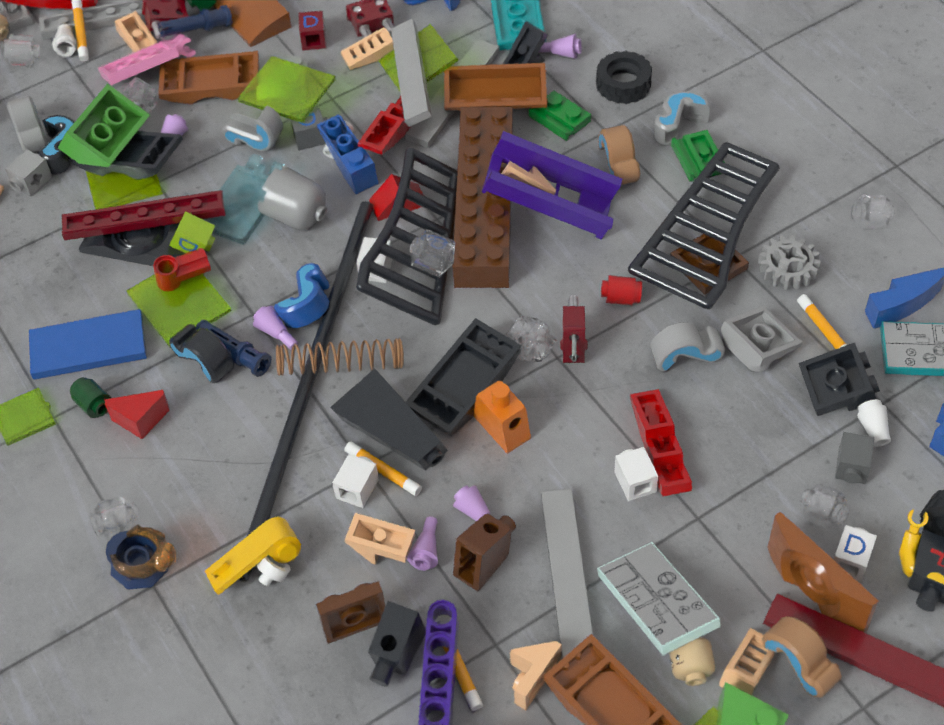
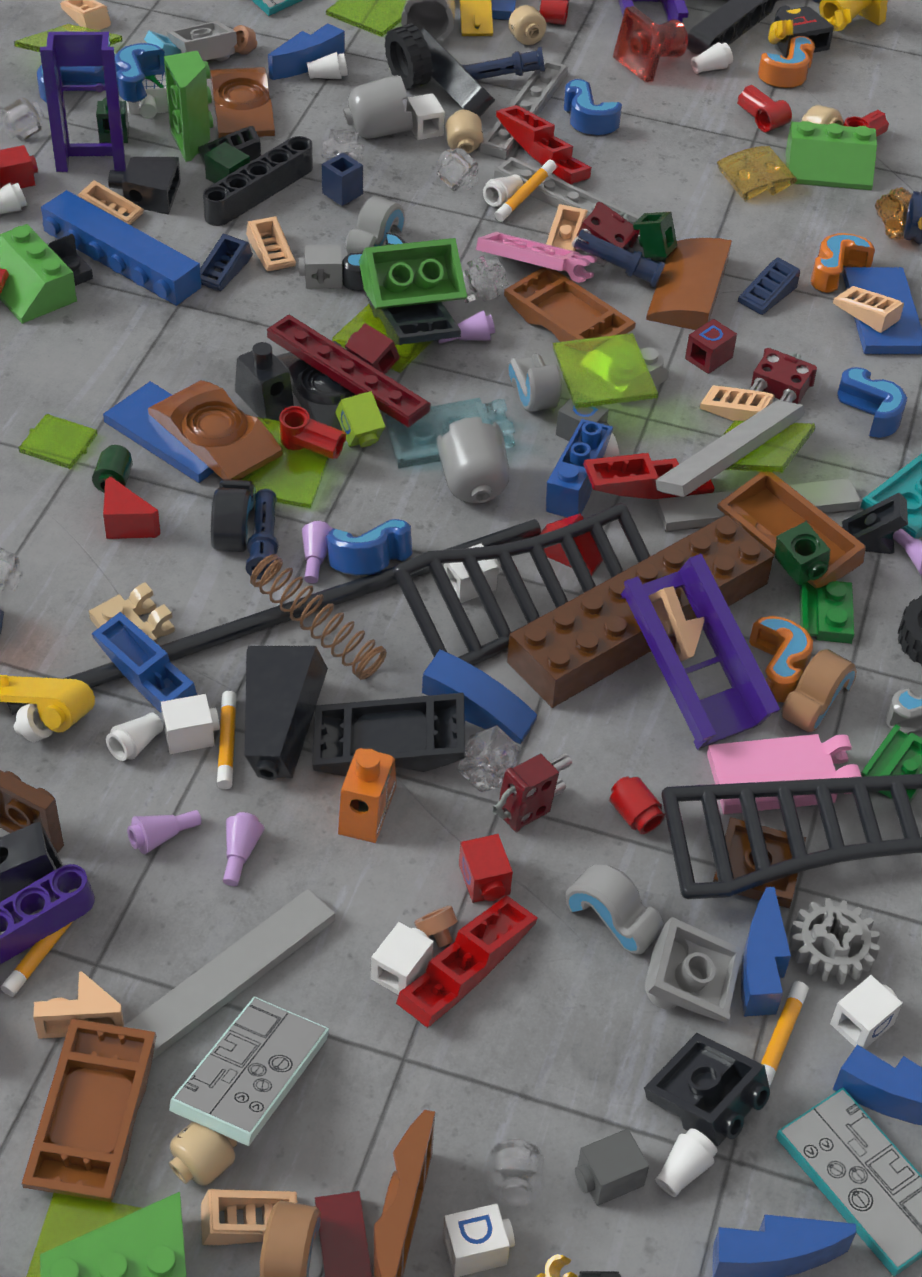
camera: 45 degrees right, 5 degrees down
(107, 266) = (263, 382): none -> black torso
(116, 318) = (217, 430): none -> dark orange slope
(136, 190) = (373, 348): none -> dark red brick
(236, 472) = (137, 604): none -> tan plate
(288, 475) = (142, 661): none -> blue slope
(336, 517) = (133, 736): none -> white cone
(377, 537) = (127, 780): light nougat slope -> none
(432, 253) = (510, 606): clear brick -> none
(456, 316) = (486, 699): none -> blue slope
(482, 549) = (189, 875): reddish brown torso -> none
(527, 92) = (802, 553): none -> dark green brick
(579, 147) = (791, 652): none -> orange animal
(605, 391) = (485, 868): none -> red brick
(623, 438) = (437, 924): none -> nougat tile
(649, 208) = (779, 761): none -> bright pink tile
(774, 294) = (764, 959): none -> blue slope
(846, 279) = (866, 1012): none -> white brick

